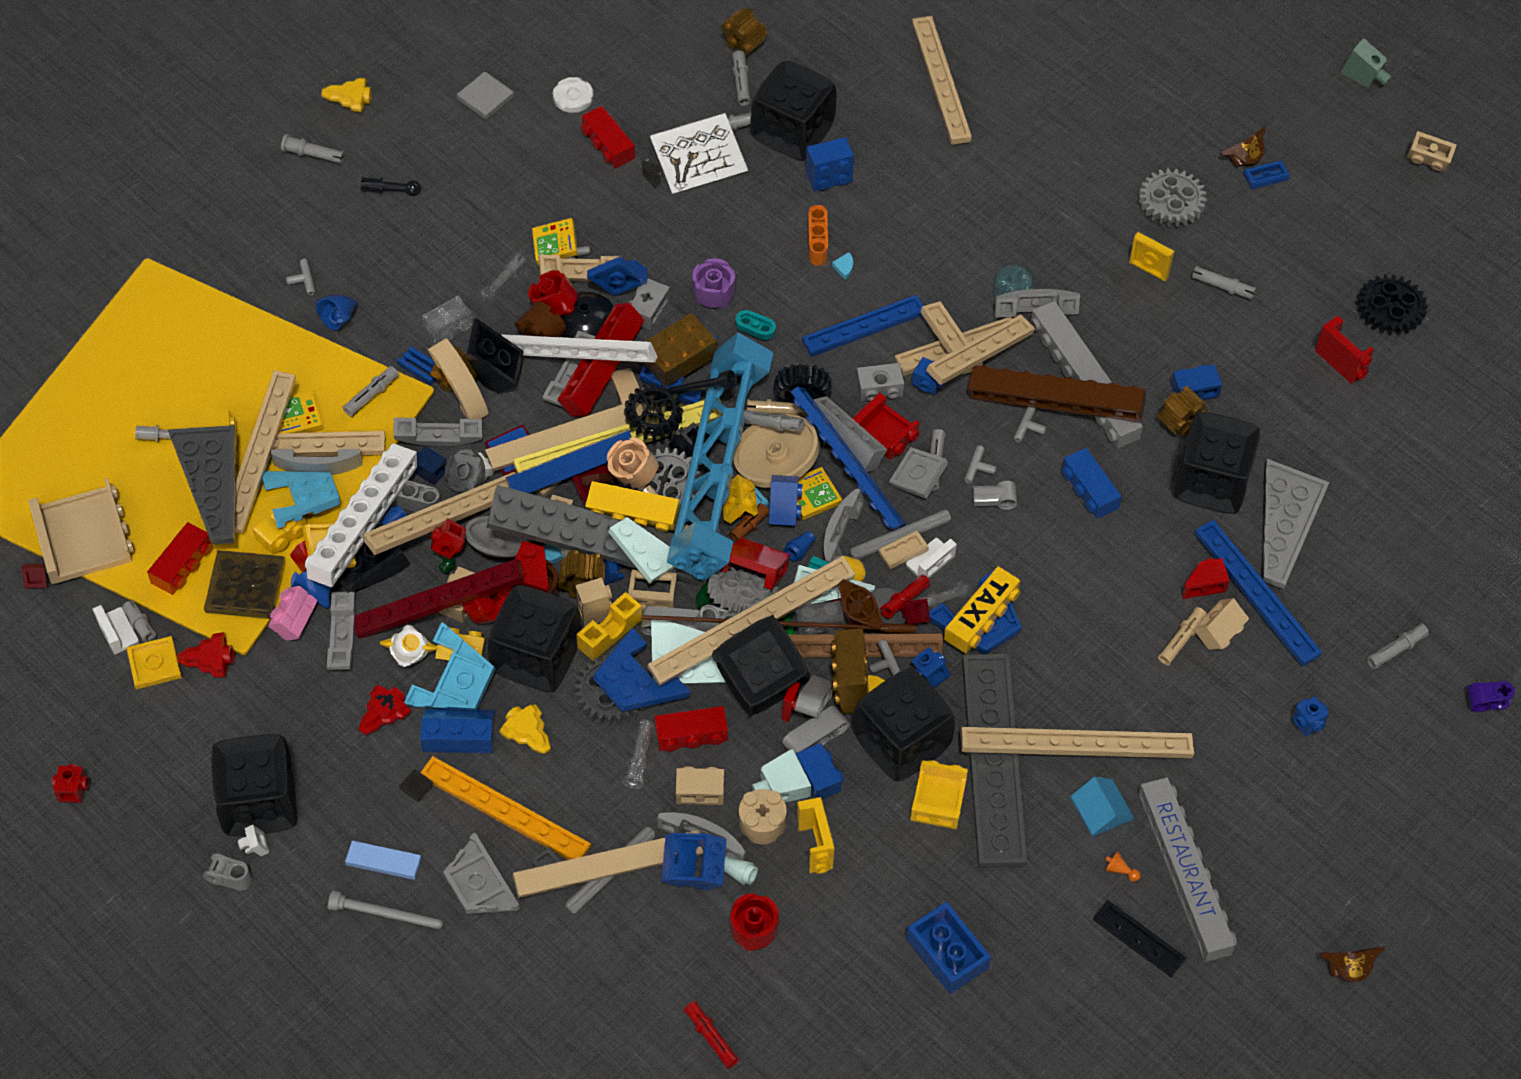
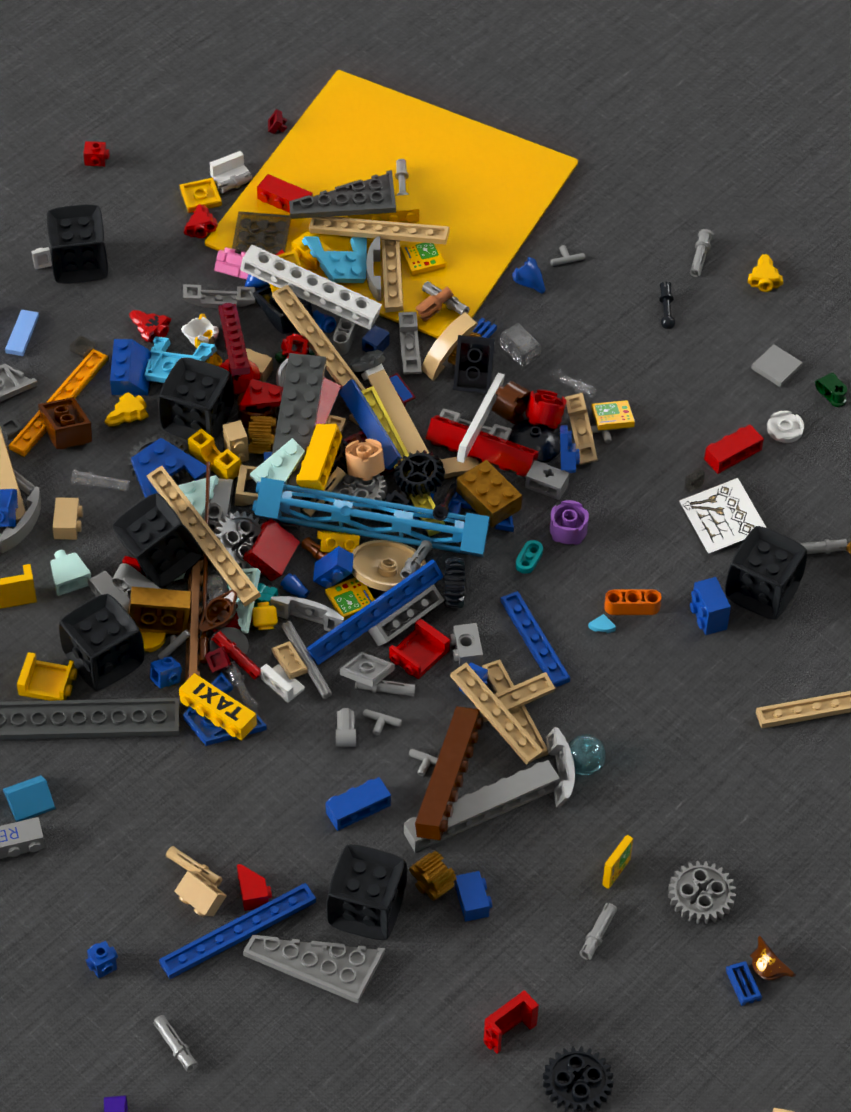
camera: 90 degrees right, 5 degrees down
(81, 533) = (309, 139): tan panel -> none
(224, 870) = (18, 246): light grey piece -> none
(384, 399) = (433, 304): none -> nougat arm
(523, 49) = (832, 389): none -> dark green piece
(548, 793) = (66, 423): none -> reddish brown slope
(691, 728) = (118, 503): red brick -> none
(762, 816) = (34, 551): tan brick -> none
(775, 407) = (439, 557): tan pin -> none
(820, 771) = (72, 594): blue brick -> none
(1076, 742) = (84, 776): tan plate -> none

